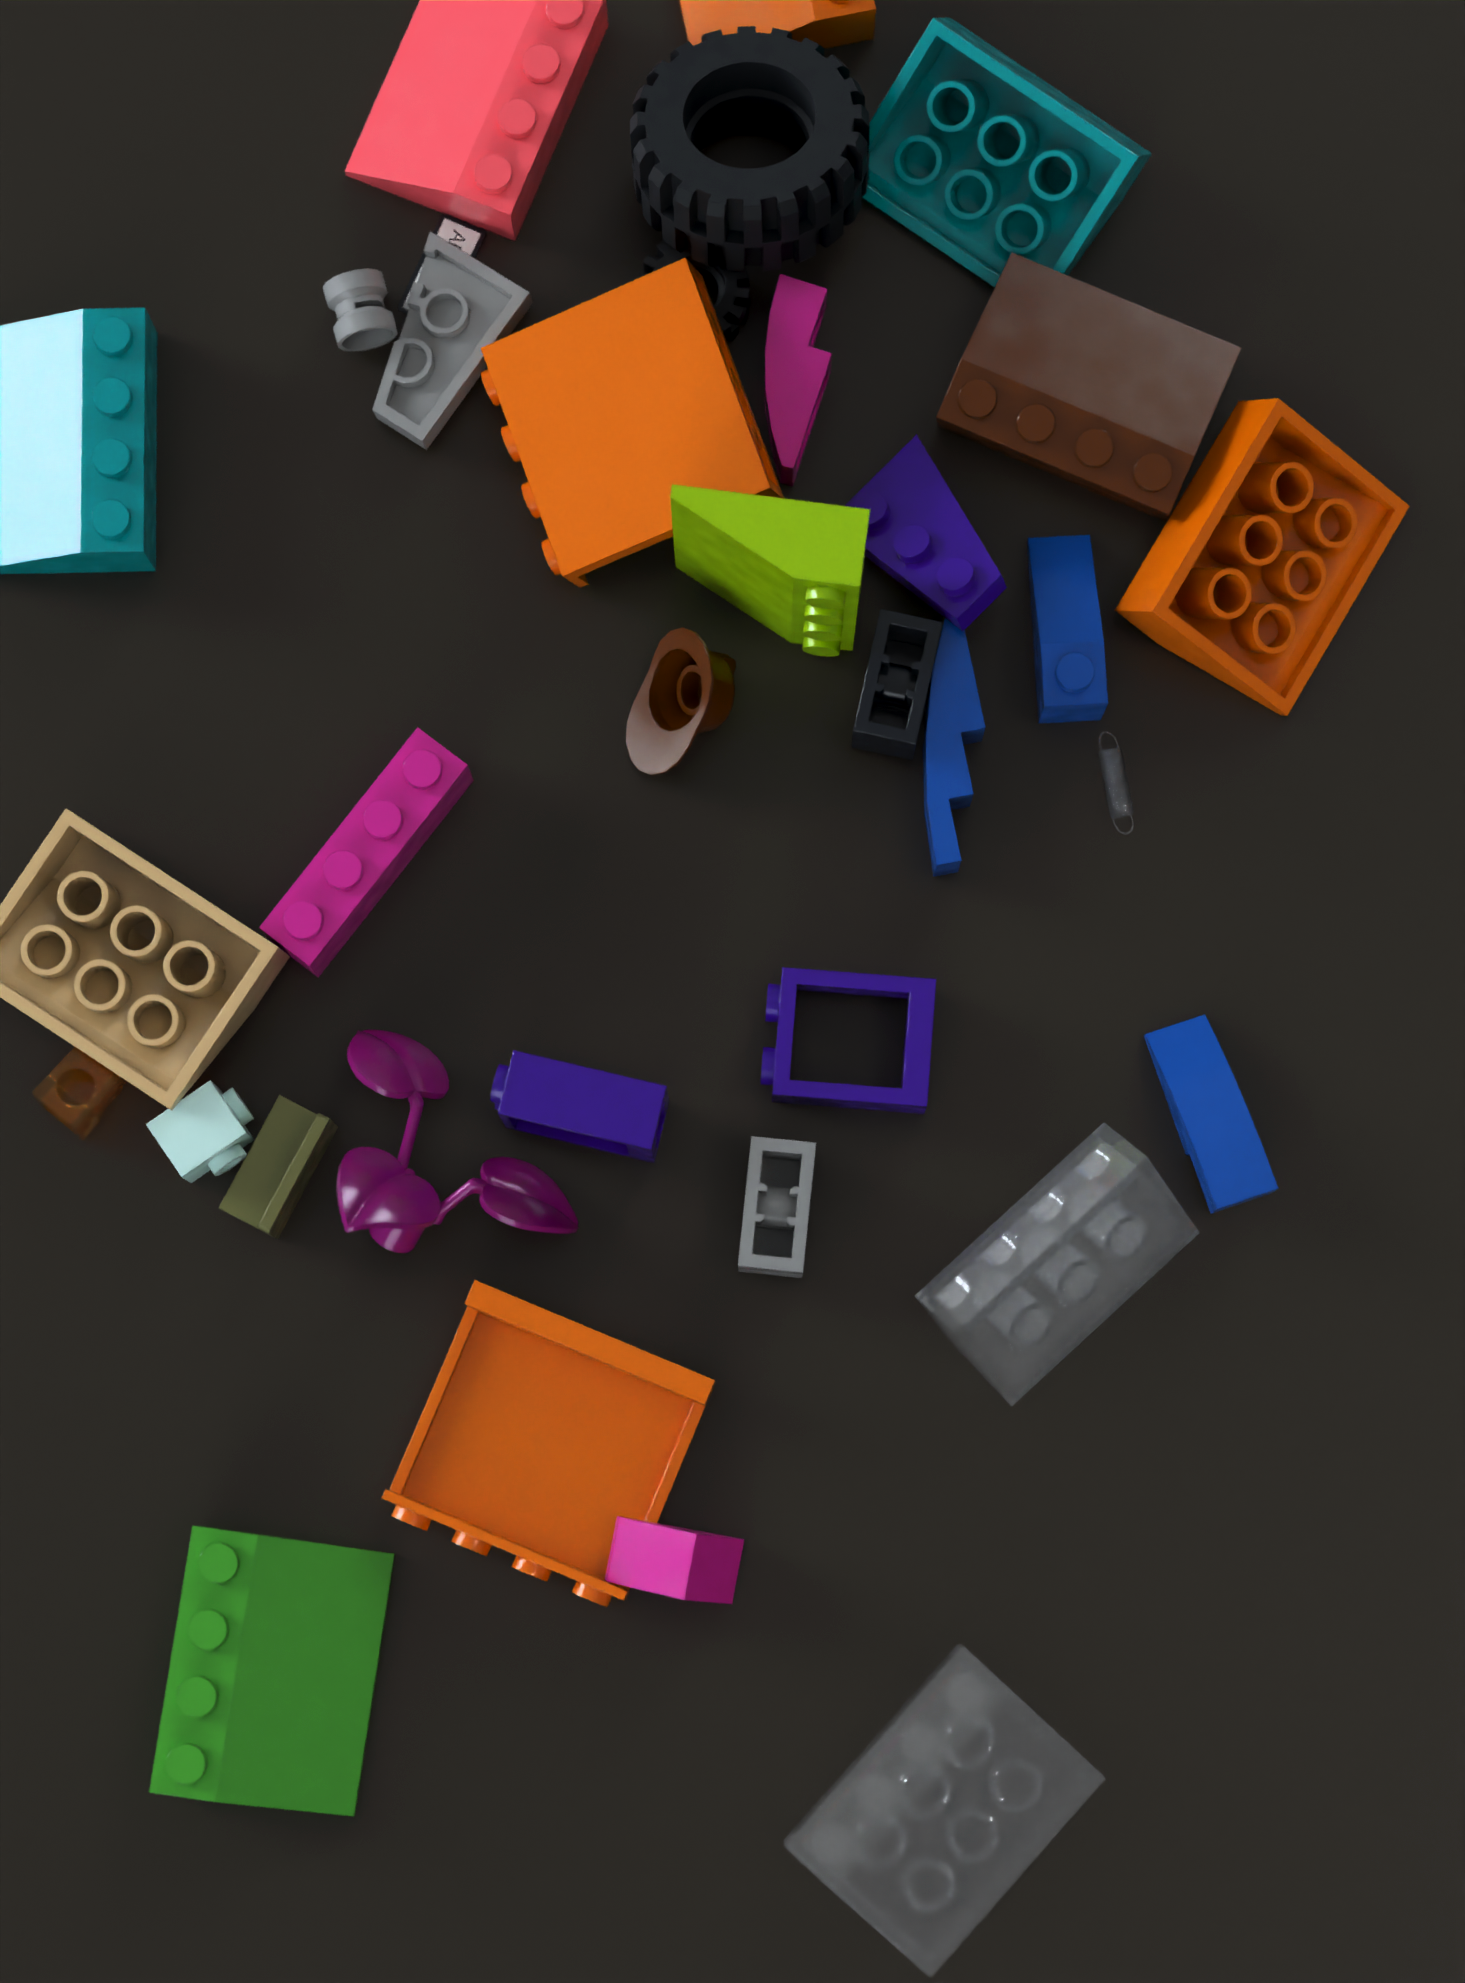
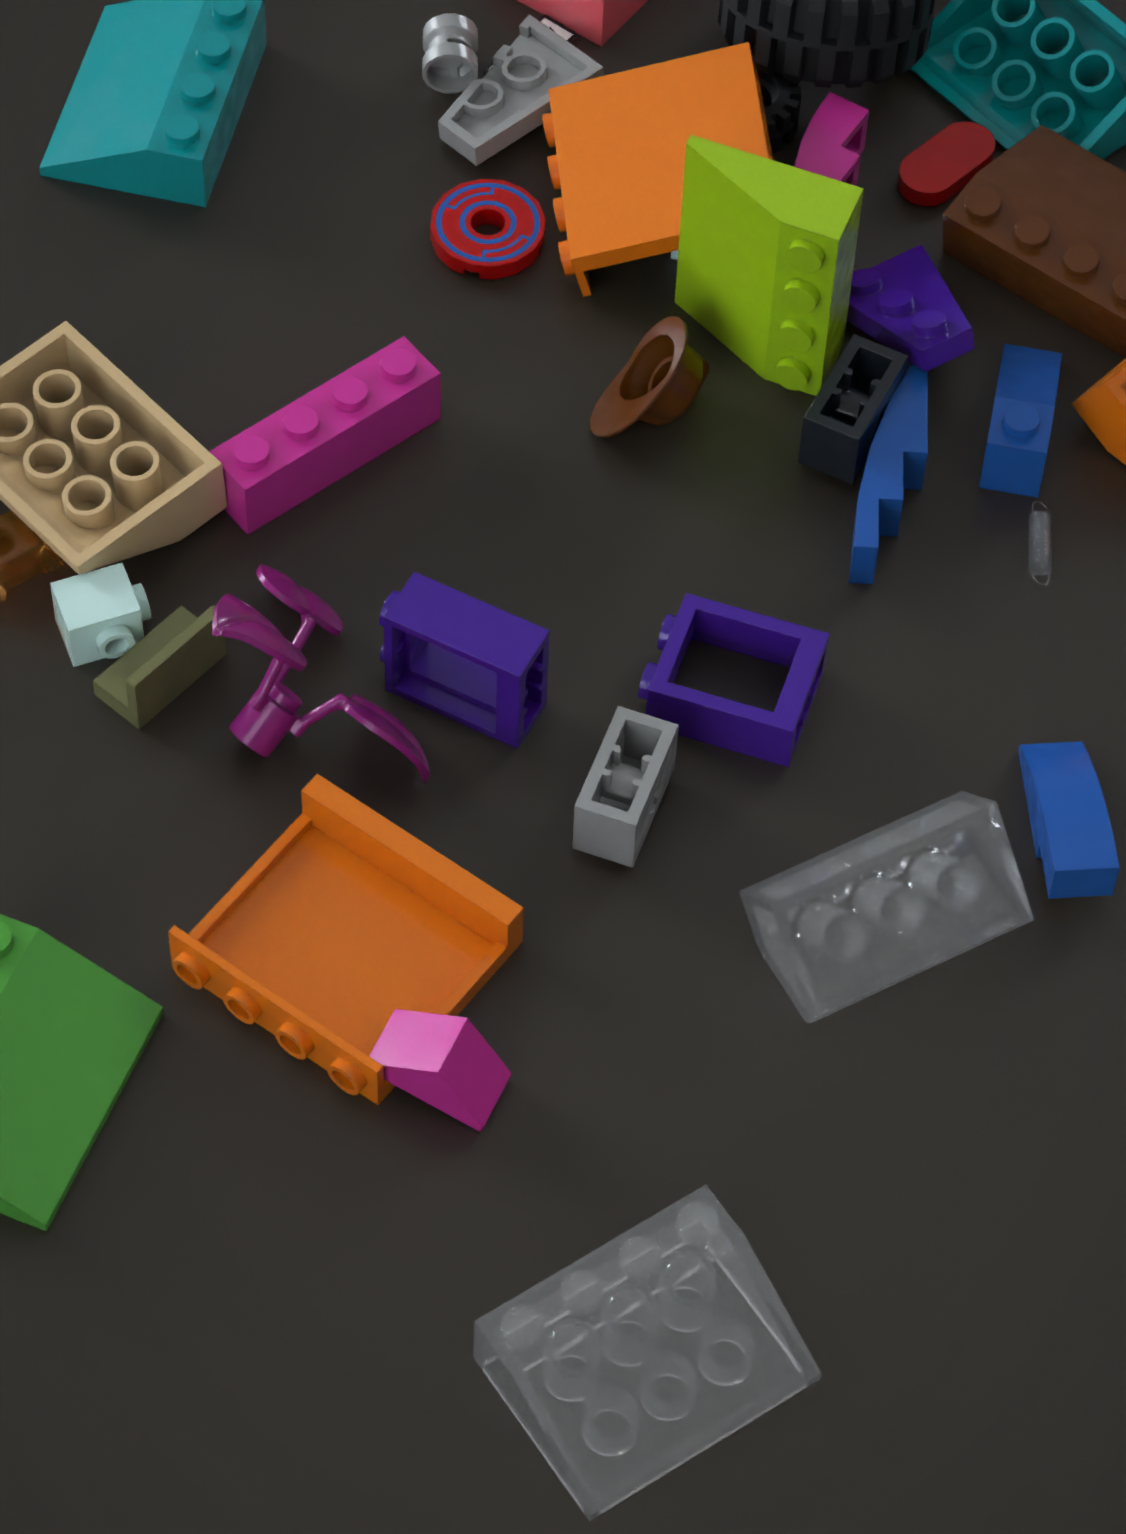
camera: 10 degrees right, 25 degrees down
(453, 493) = (494, 204): none -> red tile
(918, 313) = (945, 163): none -> red tile

